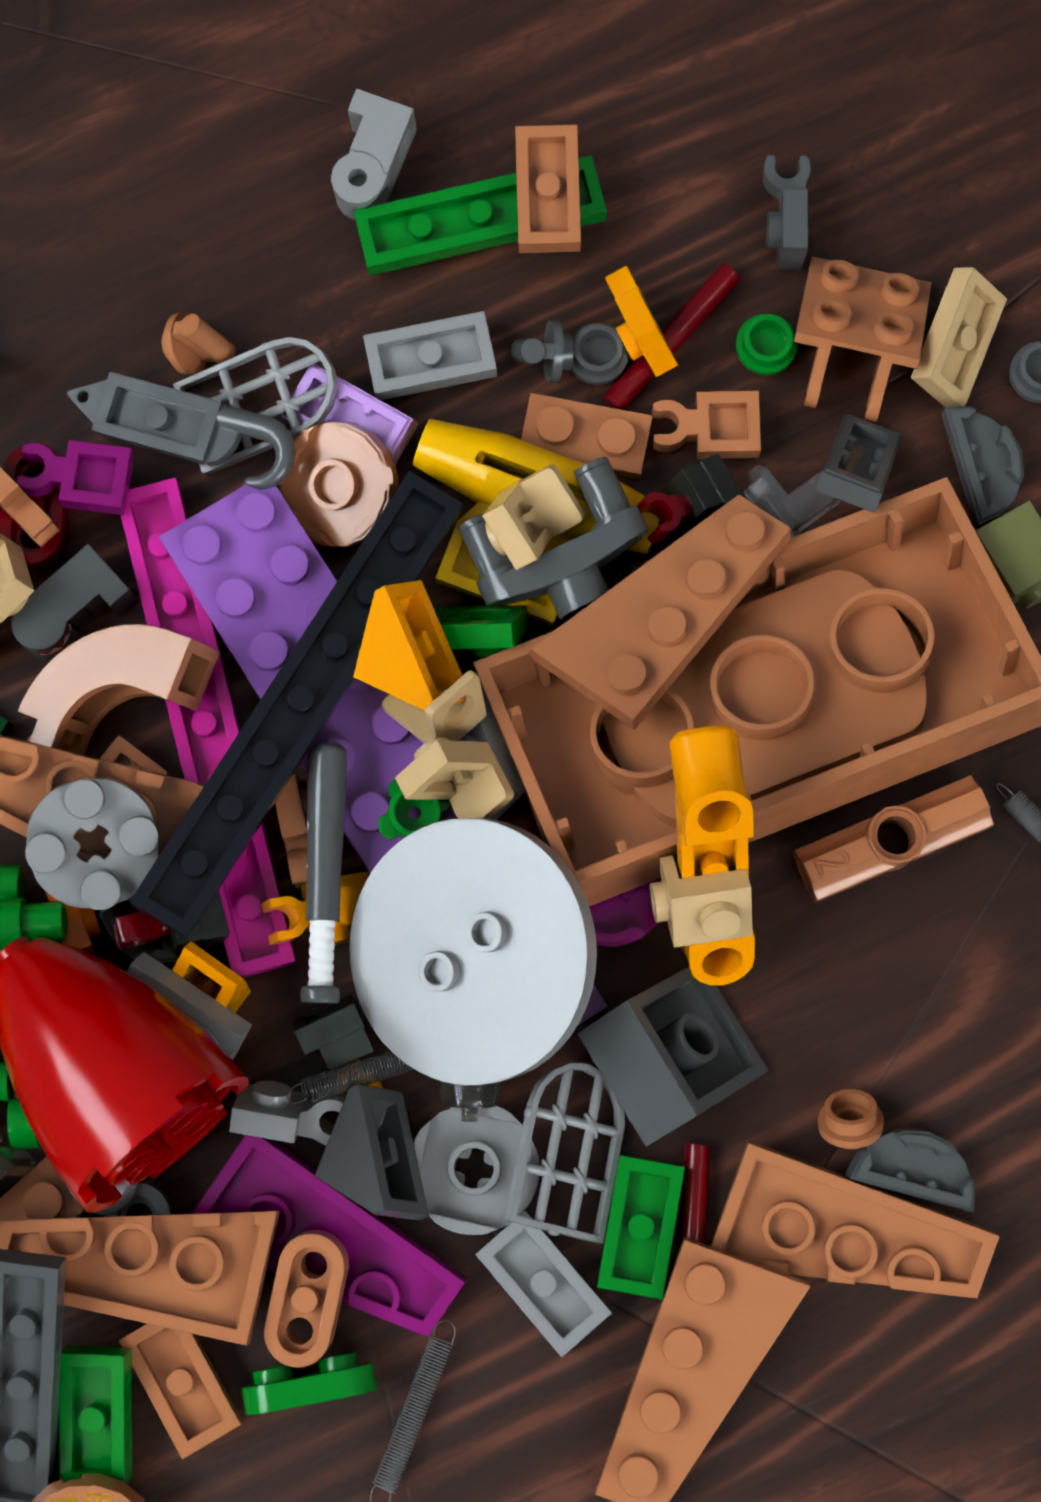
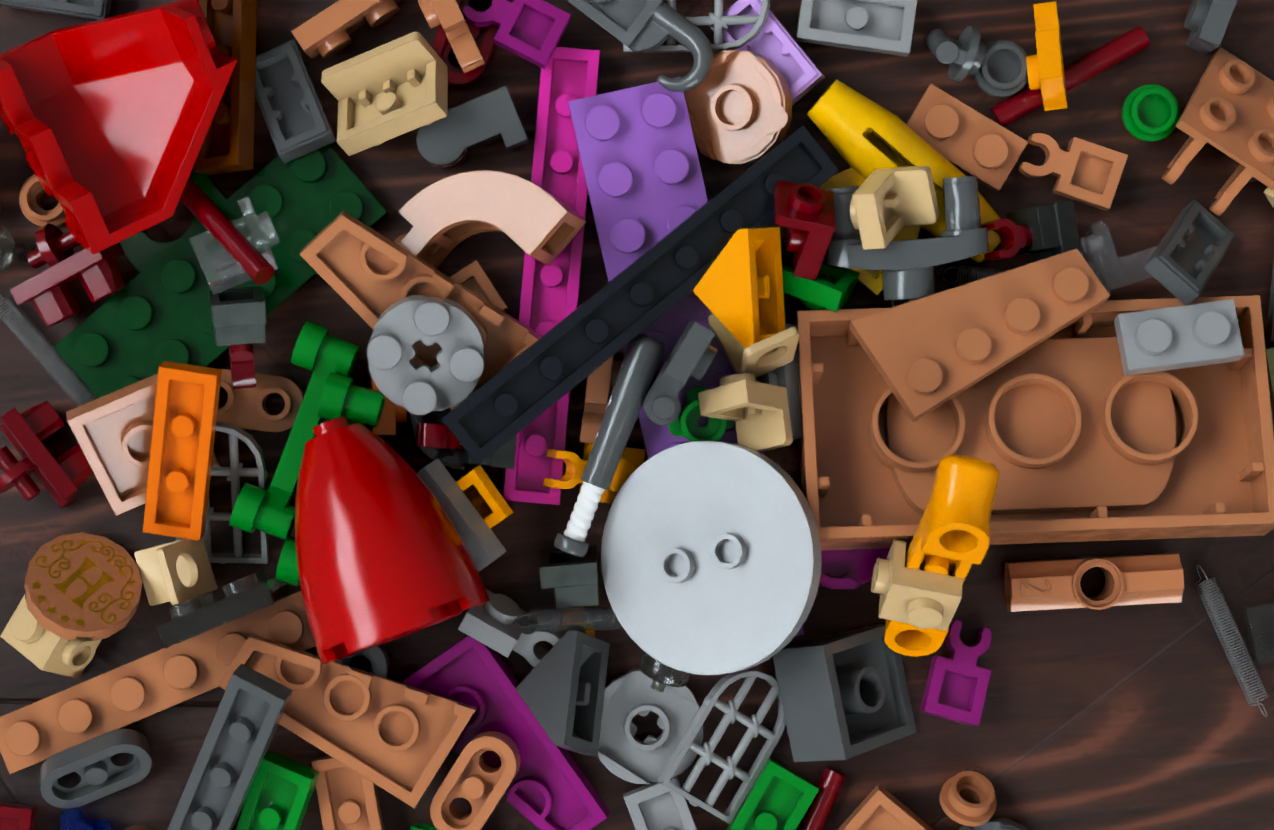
camera: 15 degrees right, 10 degrees up
(370, 747) = (688, 358): none -> dark grey plate
(452, 564) = (809, 224): none -> dark red bracket
(790, 1001) = (955, 684): none -> magenta plate
(878, 545) = (1178, 337): none -> light grey plate

